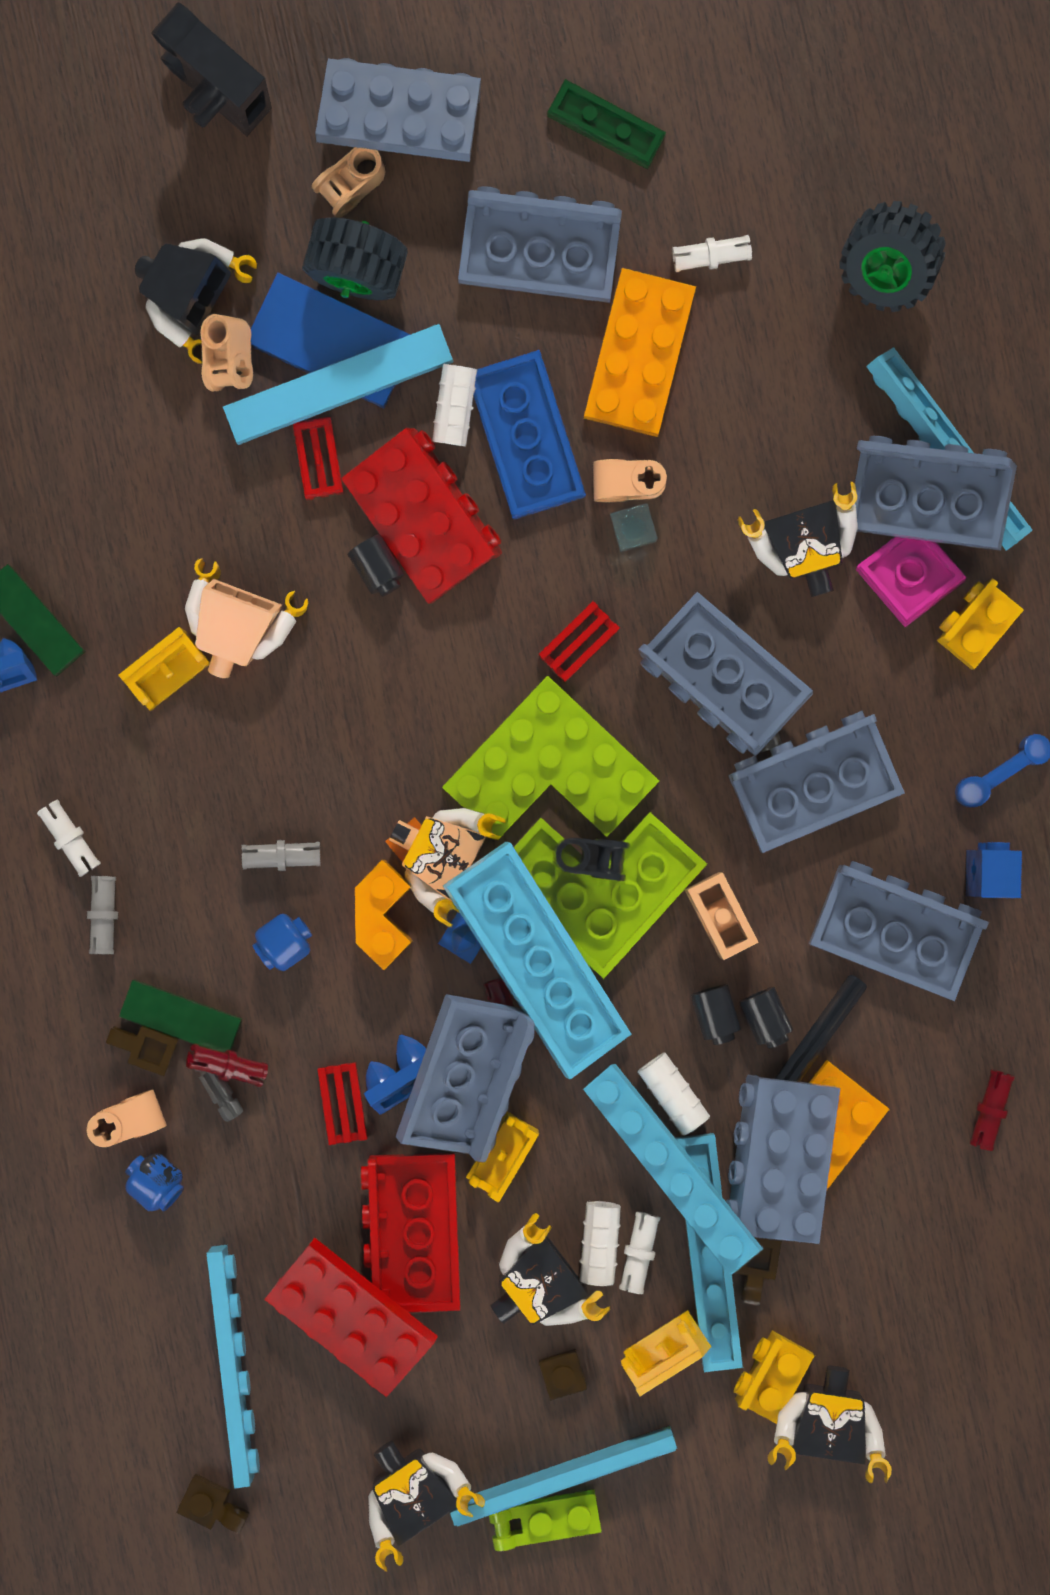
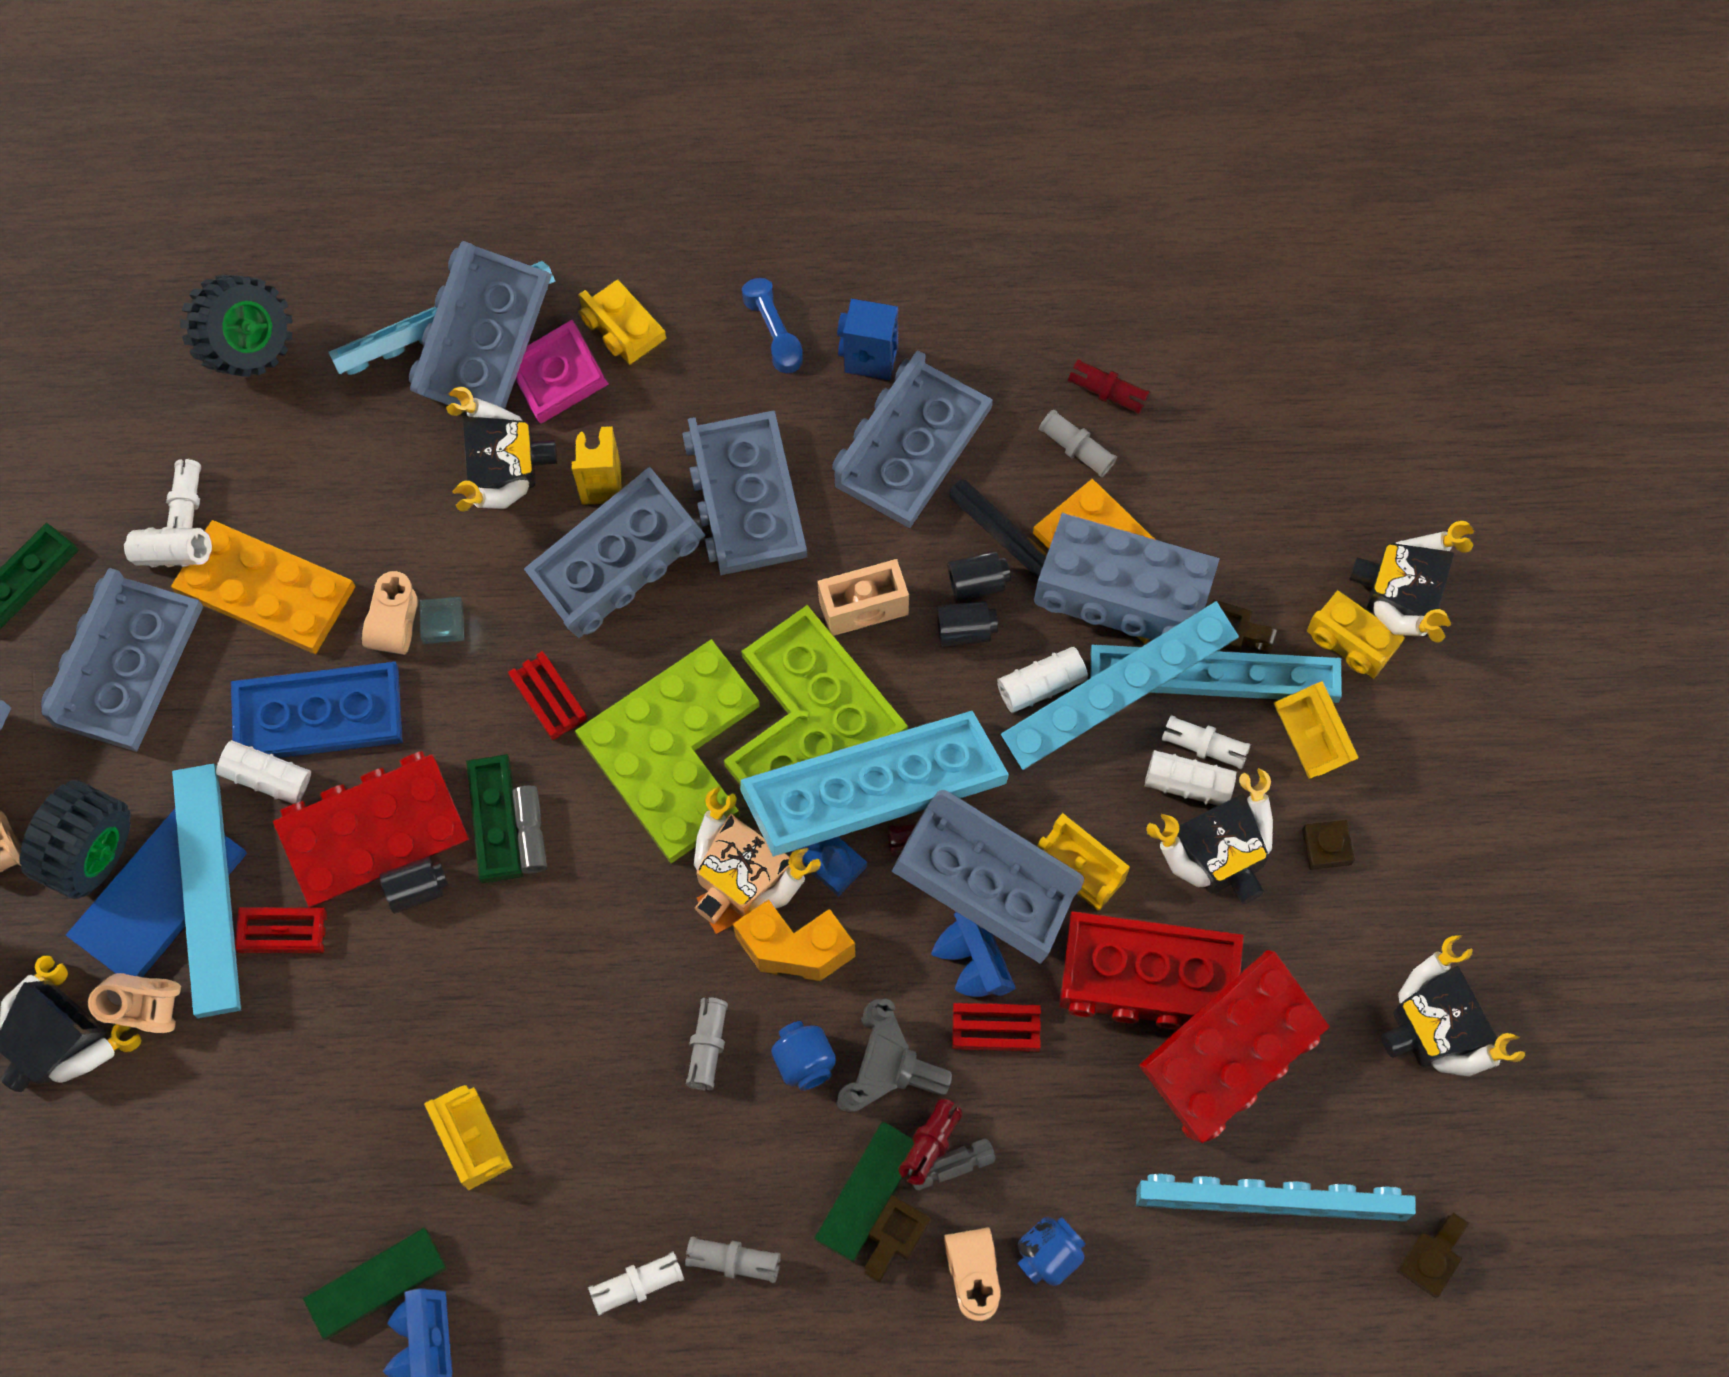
camera: 75 degrees left, 20 degrees down
(235, 622) = (435, 1045): light nougat torso -> none
(288, 1016) = (889, 1062): none -> dark grey axle
(443, 657) = (530, 835): none -> dark grey piece
(454, 621) = (494, 818): none -> dark green tile
(547, 1520) = (1485, 888): lime plate -> none
(569, 1474) = (1437, 852): medium azure tile -> none
(595, 858) = (777, 704): black piece -> none
(655, 255) = (168, 547): none -> white axle
(802, 642) = (597, 469): none -> yellow hinge
(925, 1089) = (1077, 443): none -> light grey pin

